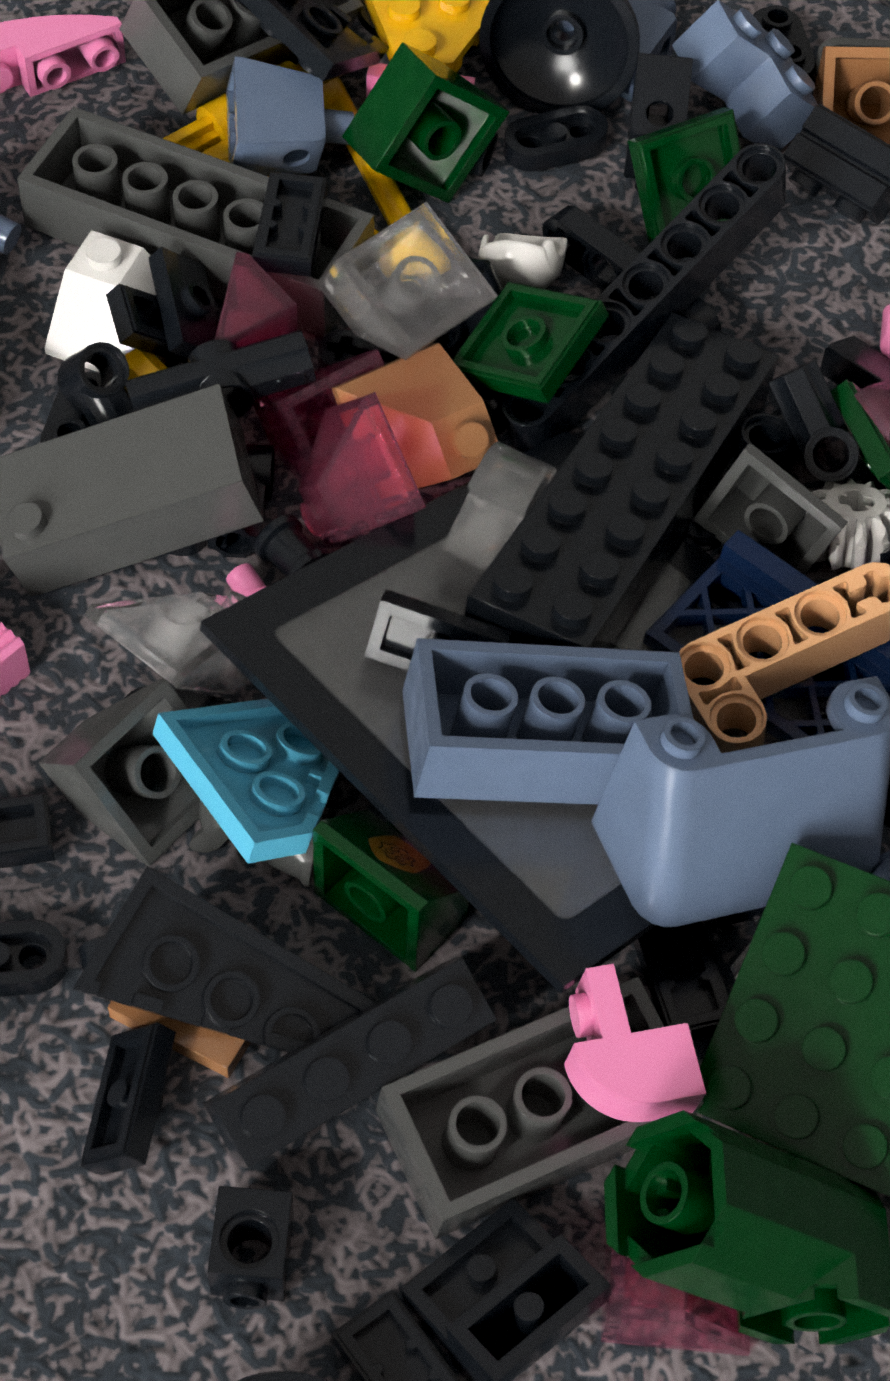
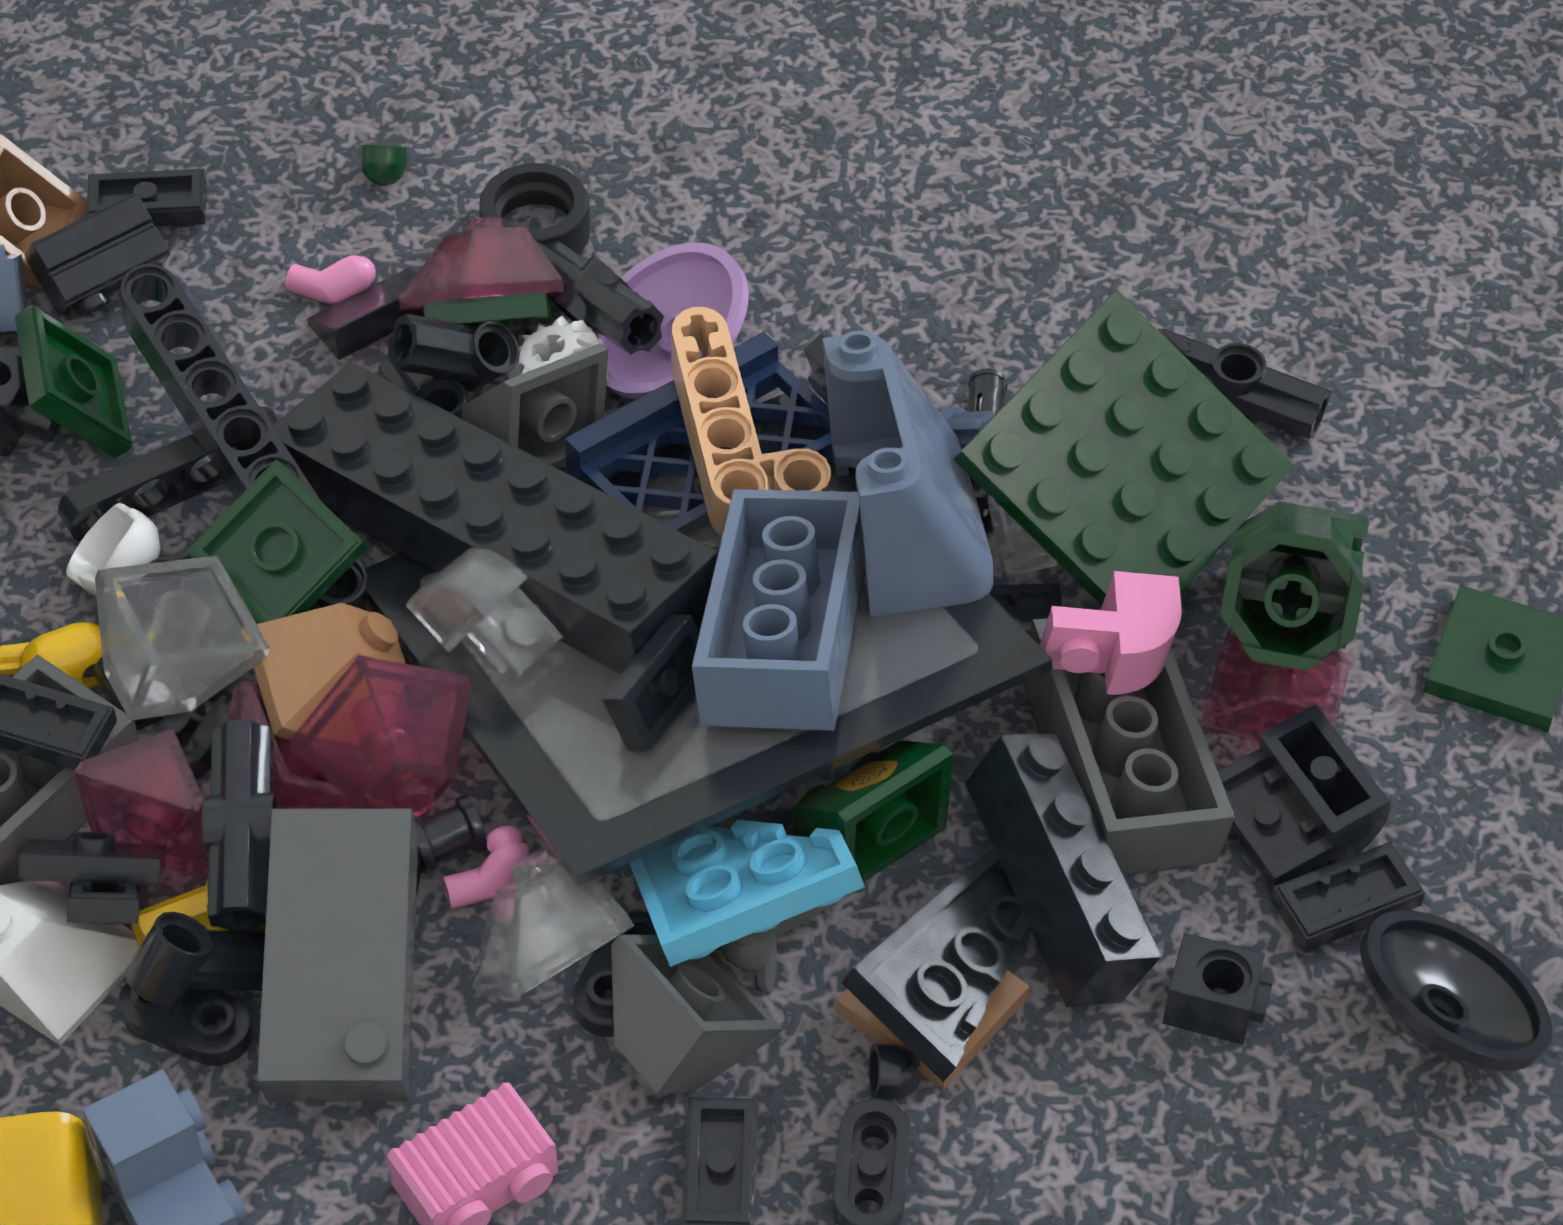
camera: 75 degrees left, 5 degrees down
(128, 1099) = (1049, 1069): black plate -> none

